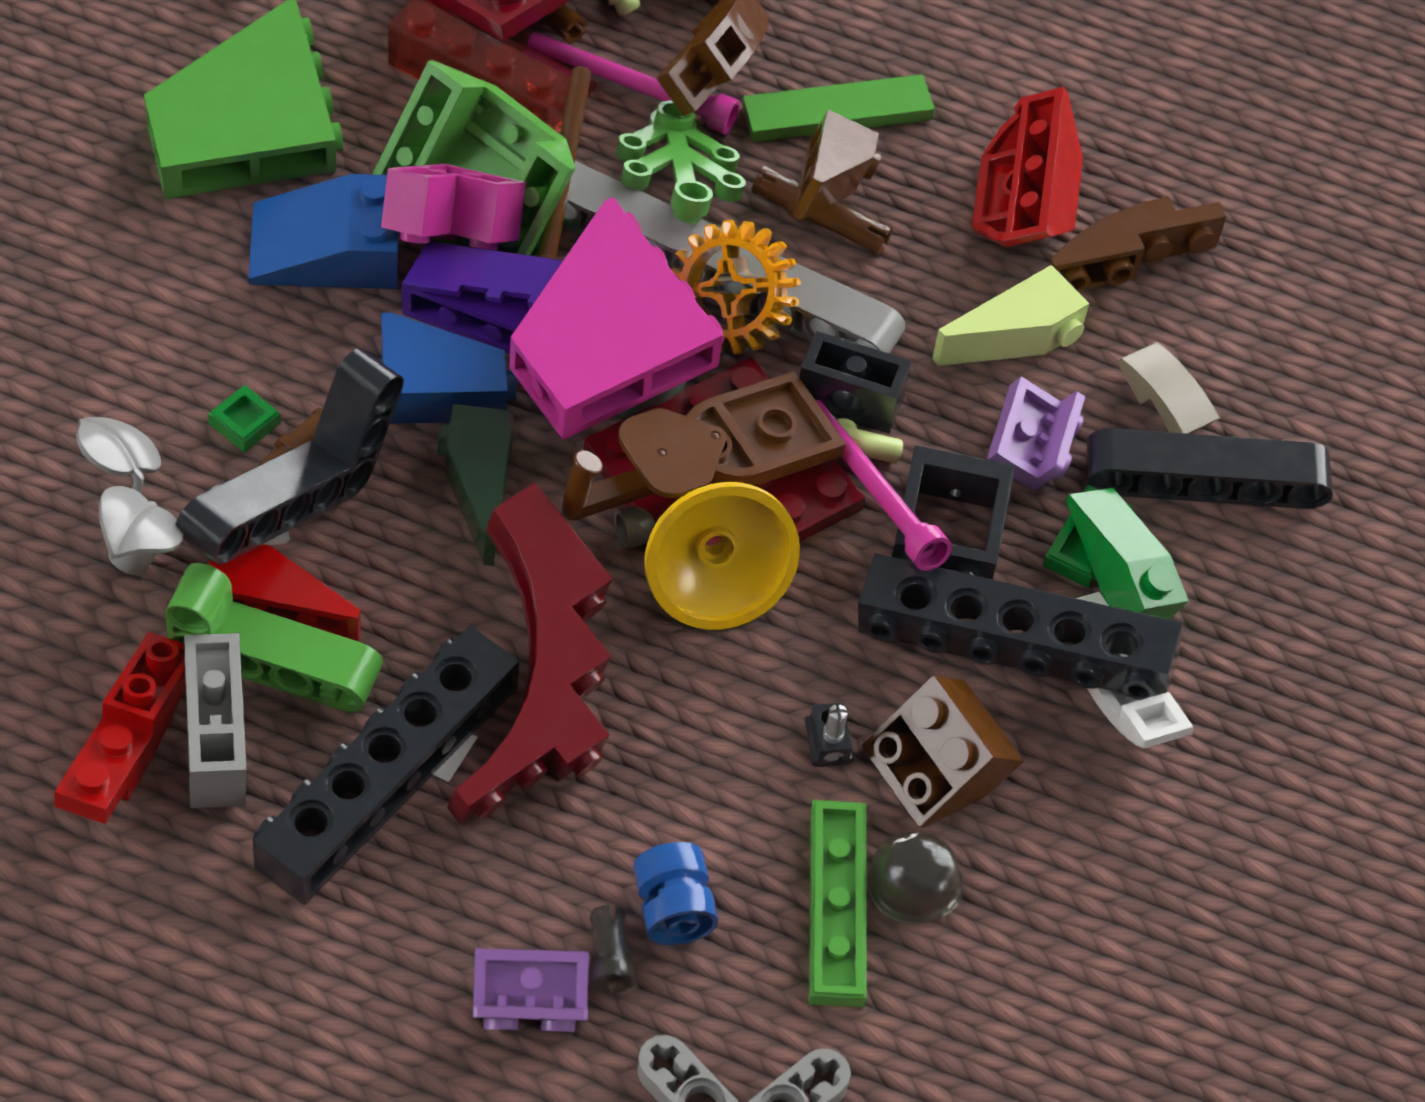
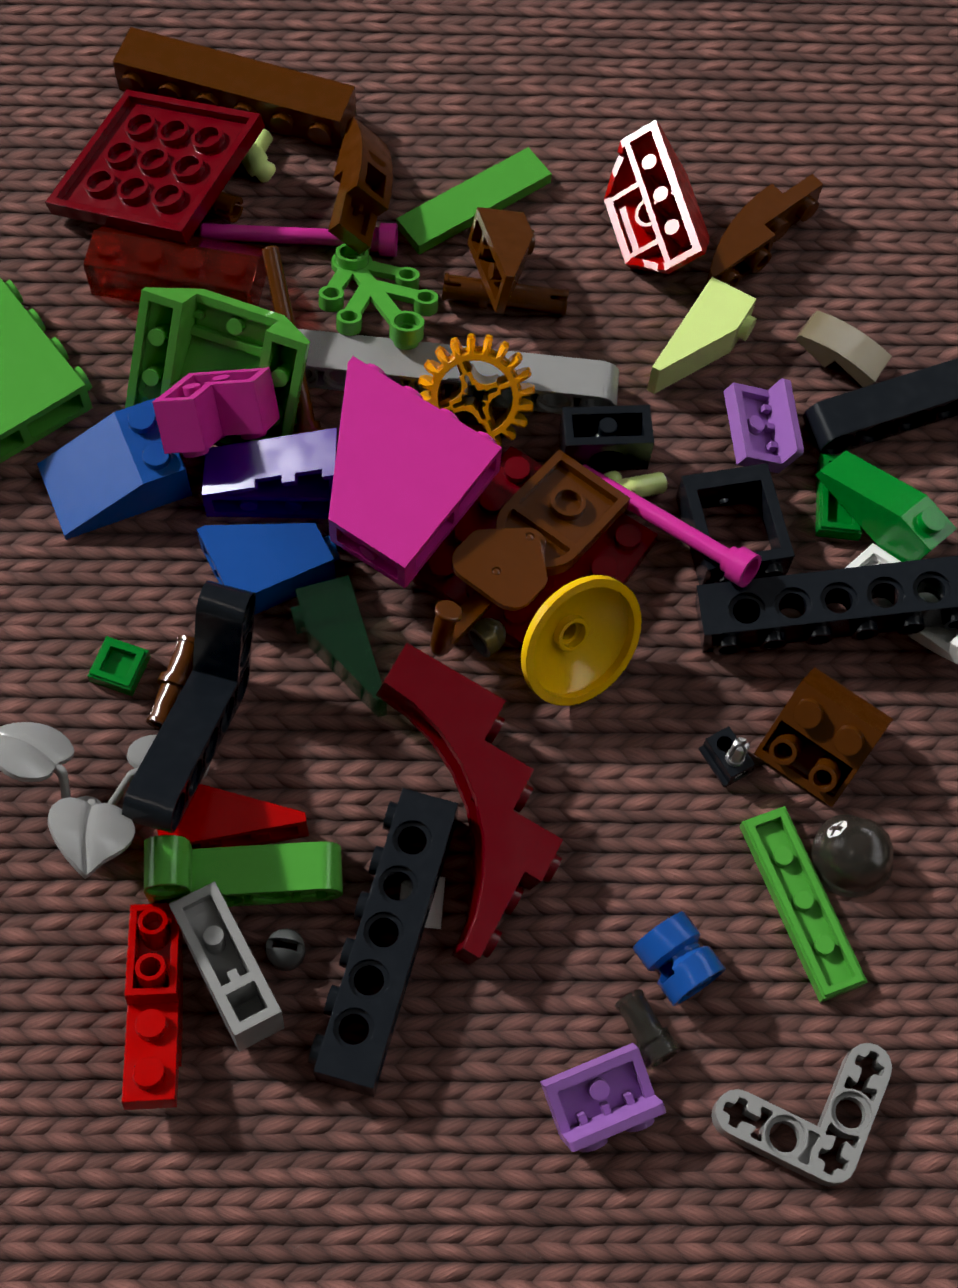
camera: 20 degrees left, 10 degrees up
(277, 742) = (283, 958): none -> dark grey hinge

